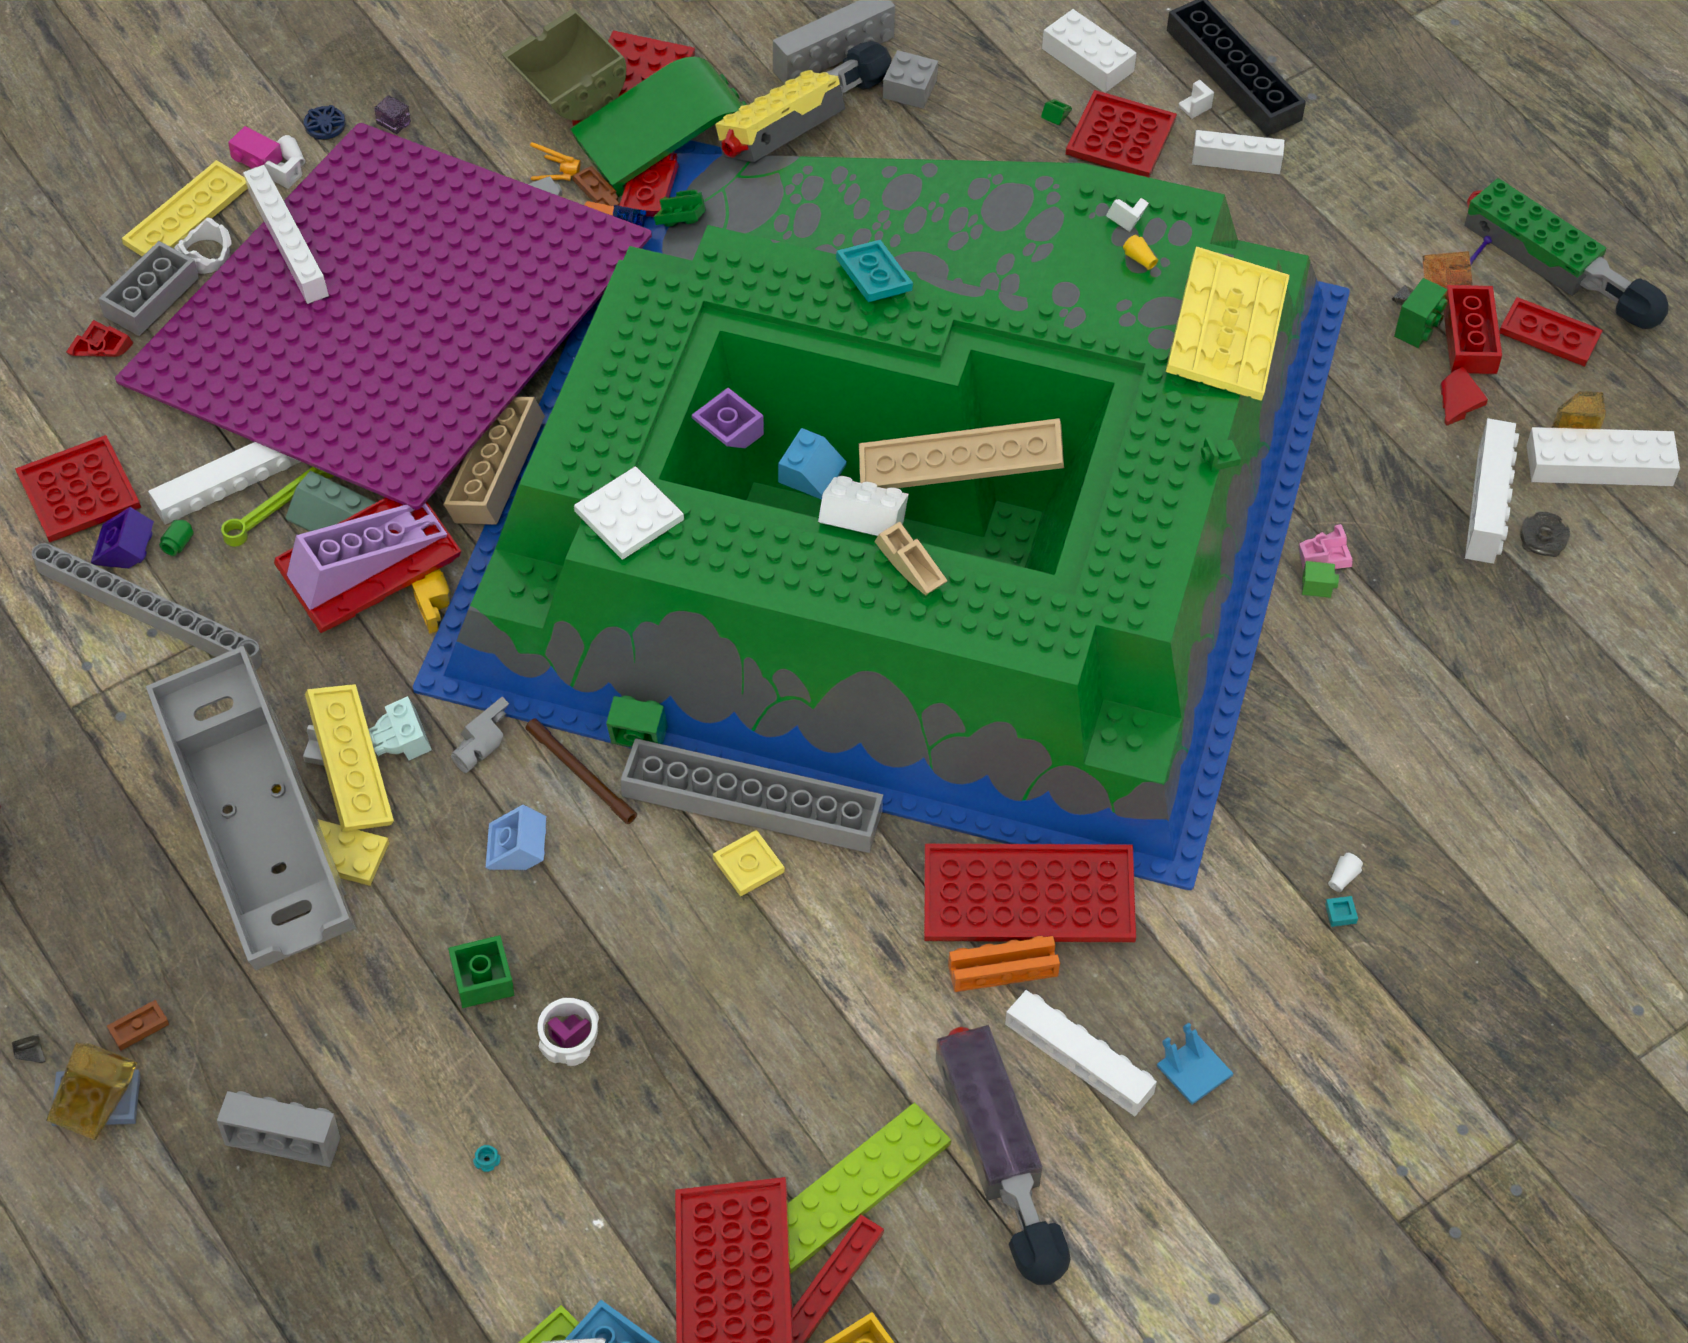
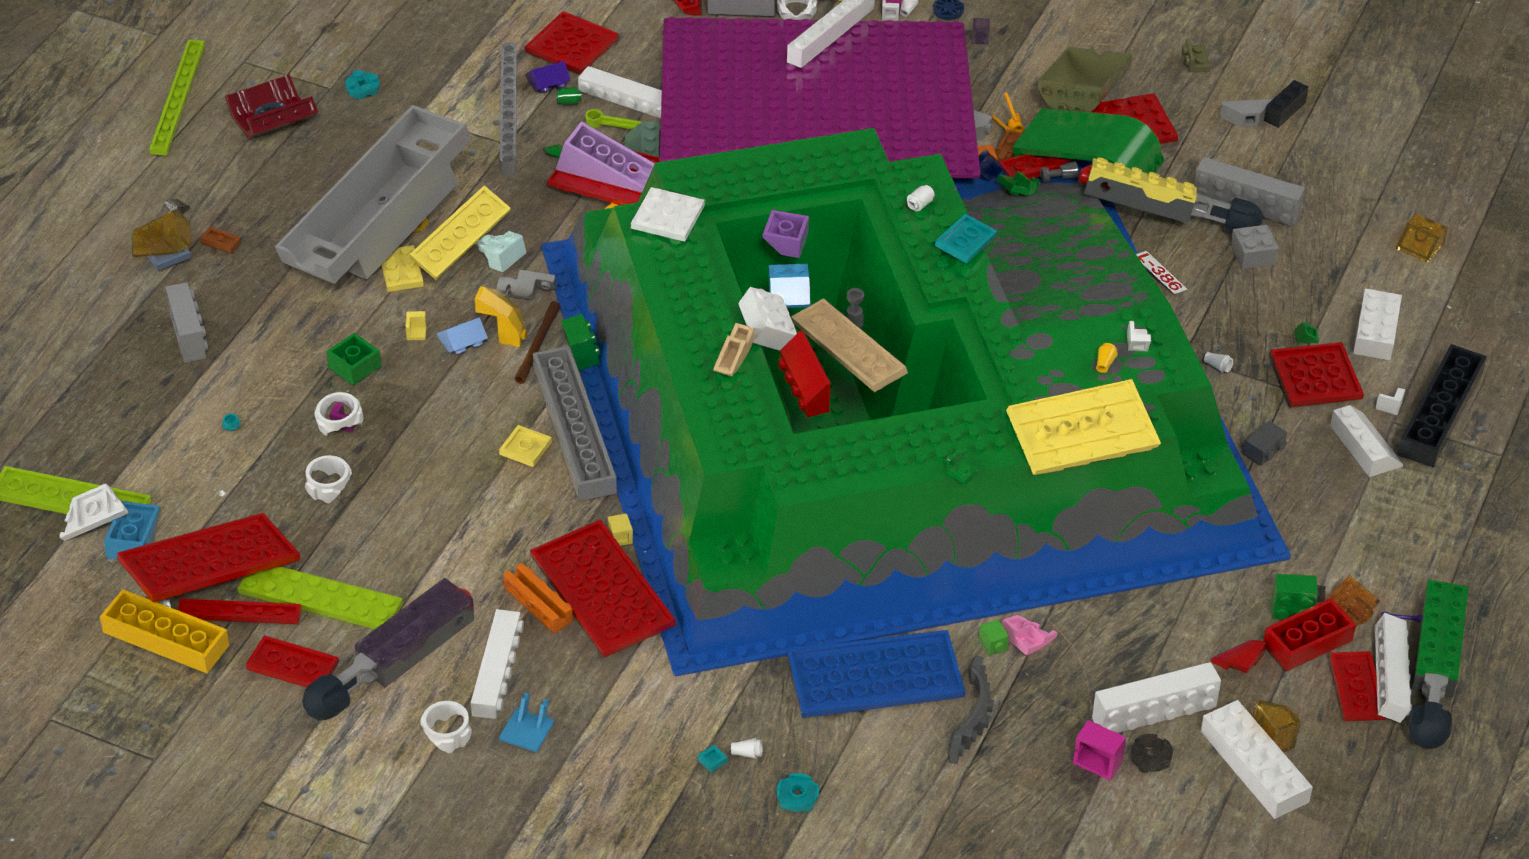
camera: 60 degrees right, 10 degrees down
(258, 597) = (554, 150): none -> green slope
(461, 883) = (416, 325): none -> light yellow panel
(523, 780) = (509, 317): none -> yellow brick
(661, 1070) = (329, 465): none -> white piece
(690, 161) = (1066, 171): none -> dark grey piece
(783, 275) = (920, 198): none -> white brick
(900, 427) = (855, 312): none -> dark grey piece
(948, 830) = (621, 529): none -> light yellow panel
(948, 1267) = (290, 662): none -> red plate
(974, 517) = (805, 376): none -> red slope
(1175, 1135) = (443, 711): none -> white piece
(1304, 707) = (875, 673): none -> blue plate
(1413, 640) = (979, 718): none -> dark grey piece
(1428, 870) = (797, 803): none -> teal plate
(1531, 570) = (1099, 750): none -> dark pink piece
(1551, 291) = (1392, 668): none -> white brick

